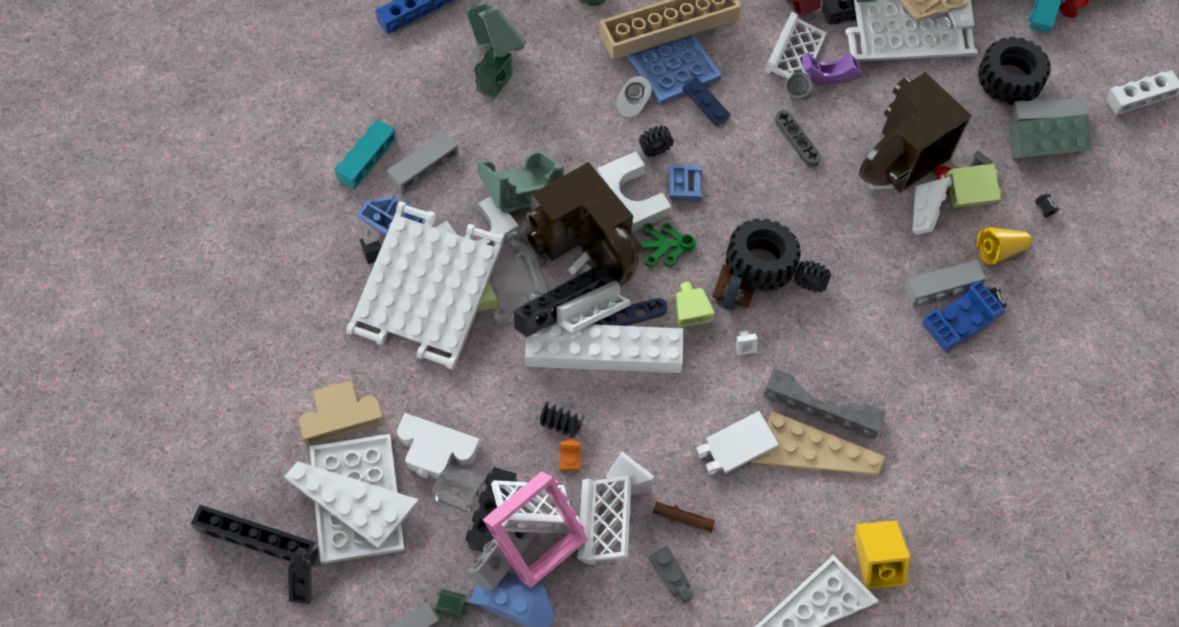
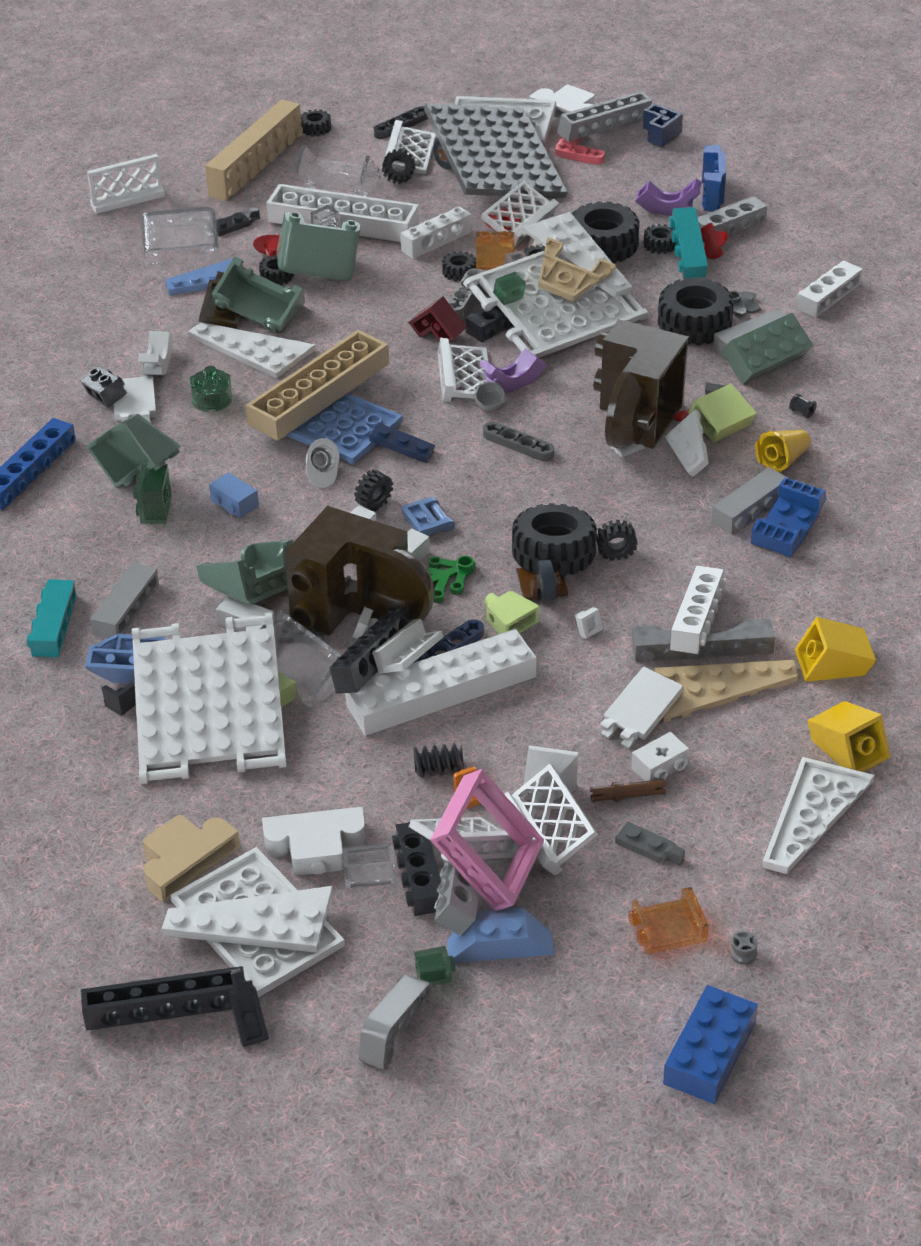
camera: 25 degrees left, 20 degrees down
(553, 96) = (233, 495): none -> medium blue brick
(732, 494) = (660, 758): none -> white brick
(832, 377) = (698, 610): none -> white brick
(920, 466) = (834, 651): none -> yellow slope
(1062, 74) = (744, 302): none -> dark grey plate

